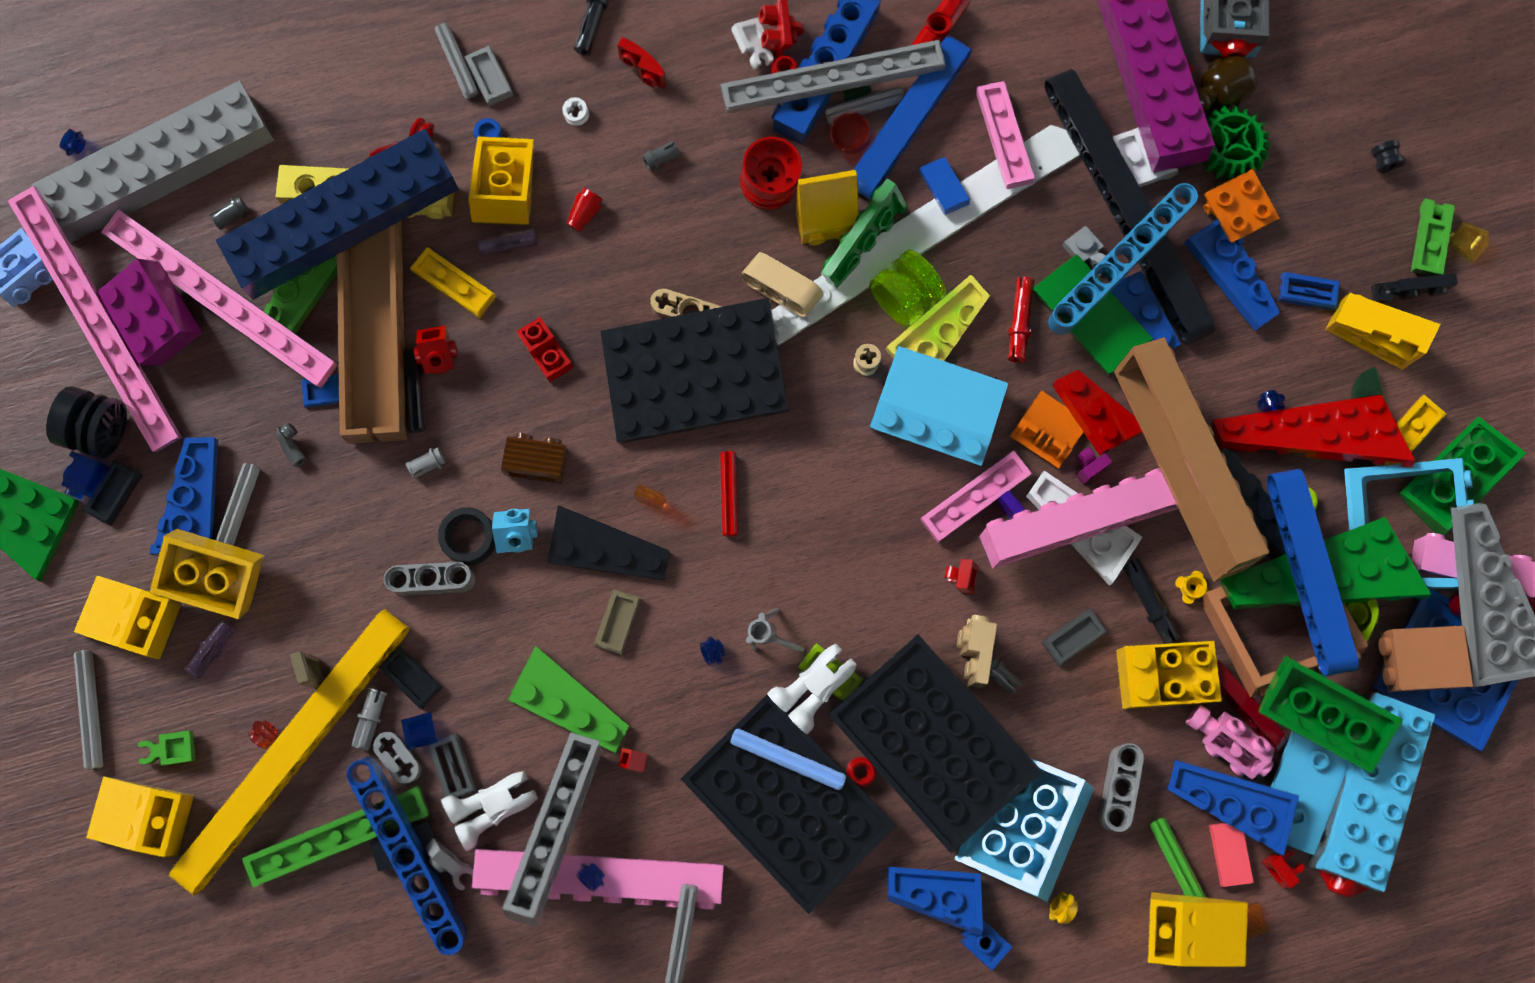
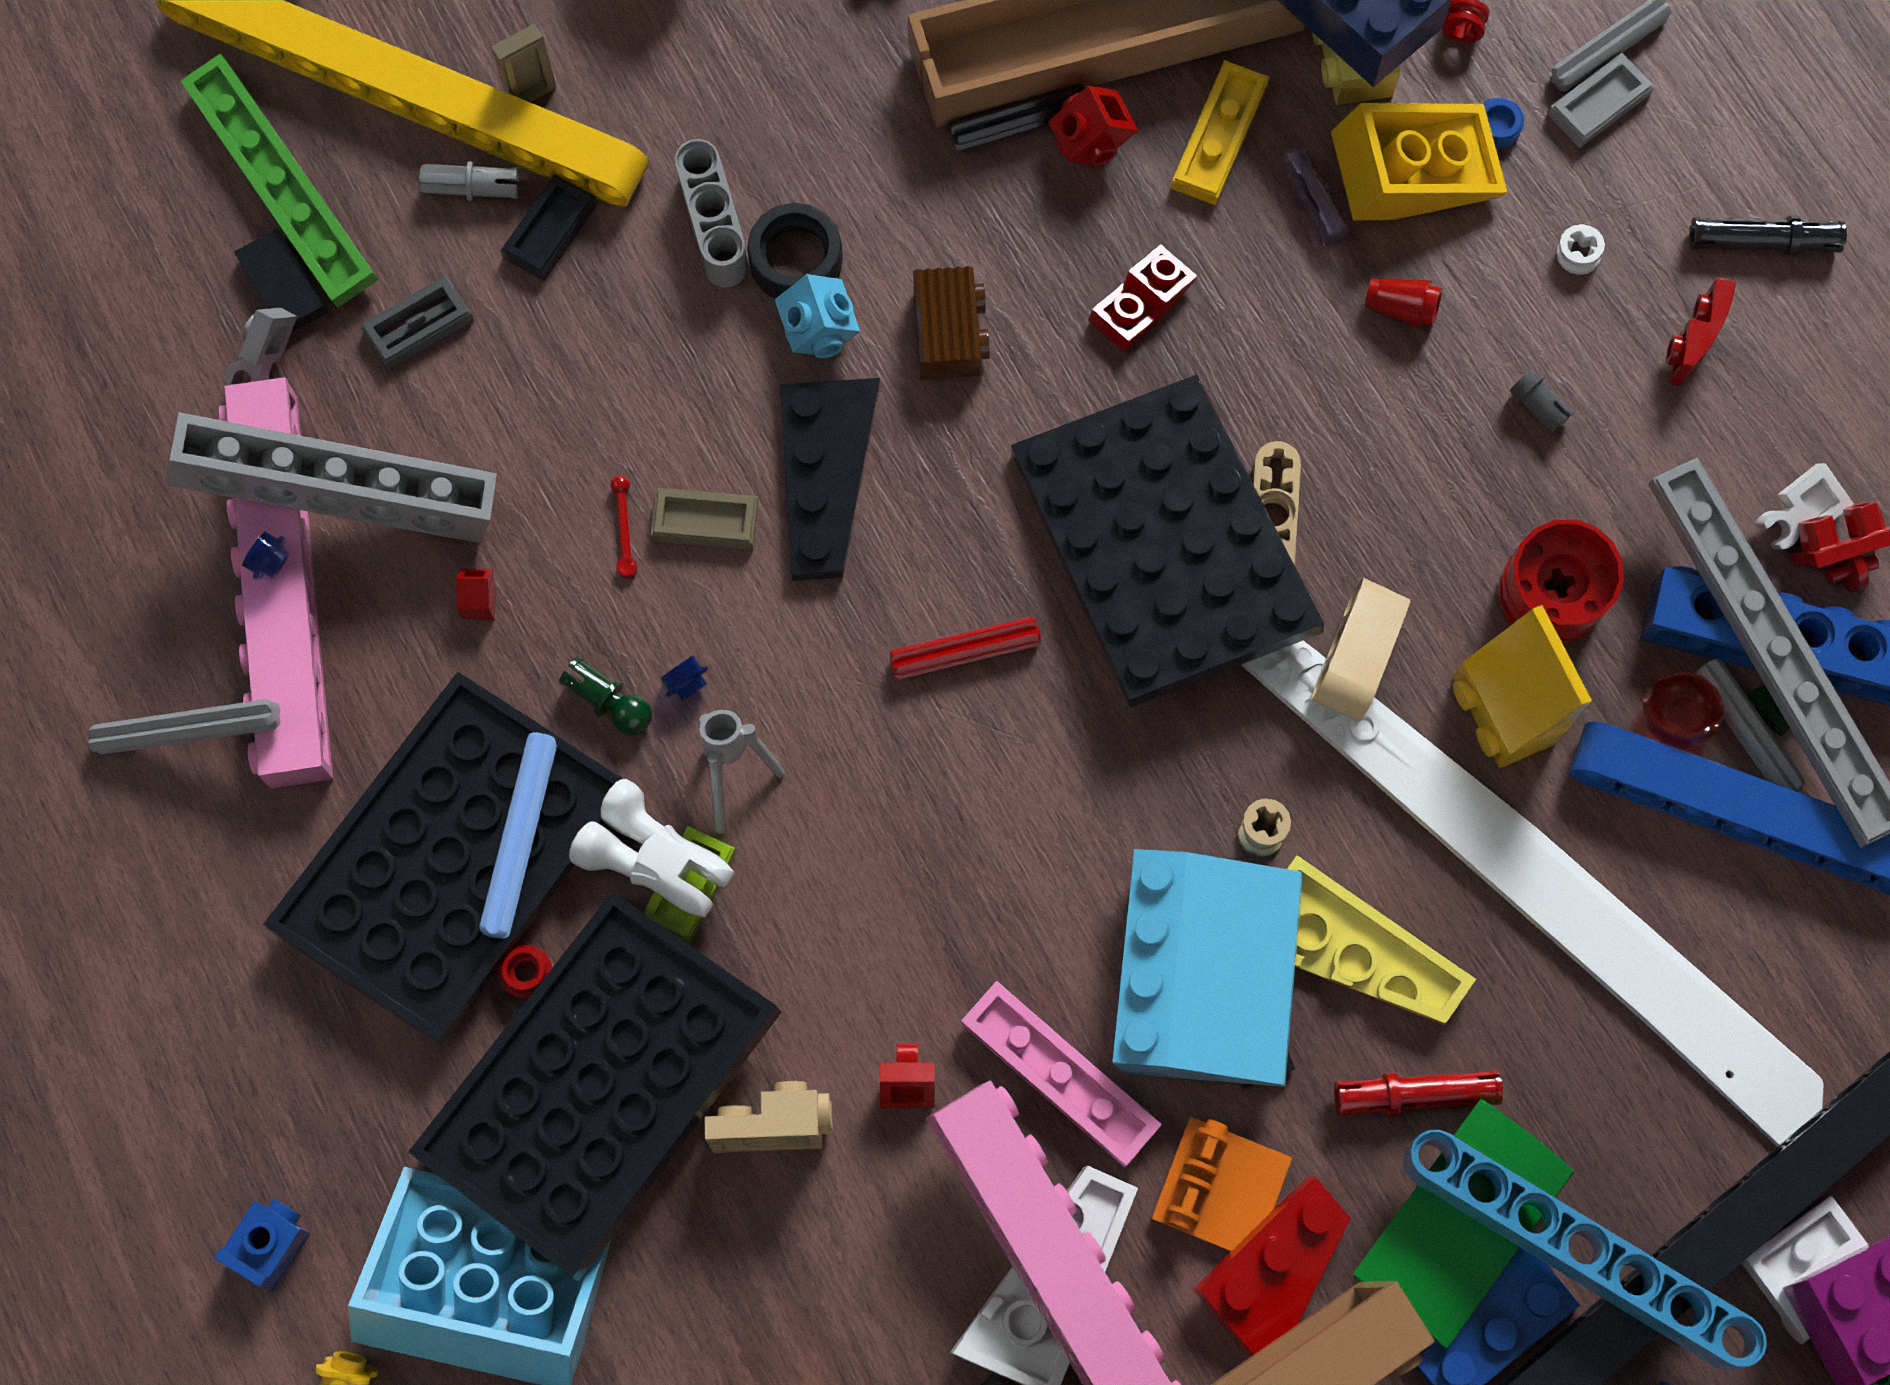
camera: 80 degrees right, 5 degrees down
(263, 734) = (417, 35): clear red plate -> none
(391, 762) = (419, 239): light grey beam -> none
(407, 870) = (236, 282): blue beam -> none
(419, 731) = (463, 256): clear blue plate -> none
(426, 463) = (911, 172): light grey pin -> none
(496, 804) = (368, 394): white piece -> none
(564, 701) = (553, 469): bright green wing -> none
(635, 671) = (626, 565): none -> red hinge
(650, 497) = (925, 519): clear orange tile -> none
(725, 686) = (629, 713): none -> dark green pin
(783, 62) = (1782, 566): red plate -> none
(862, 237) = (1493, 767): green wing -> none
(907, 288) = (1414, 866): clear neon green wheel -> none
(940, 895) = (333, 1146): blue wing -> none
(944, 186) = (1635, 900): blue tile -> none
(1002, 674) = (742, 1186): dark grey pin -> none
(1005, 135) = (1770, 991): bright pink plate -> none
(1009, 504) = (1059, 1137): dark purple tile -> none
(1074, 637) = (842, 1308): dark grey tile -> none
(1086, 246) = (1597, 1186): light grey plate -> none
(1091, 465) = (1168, 1278): magenta tile -> none

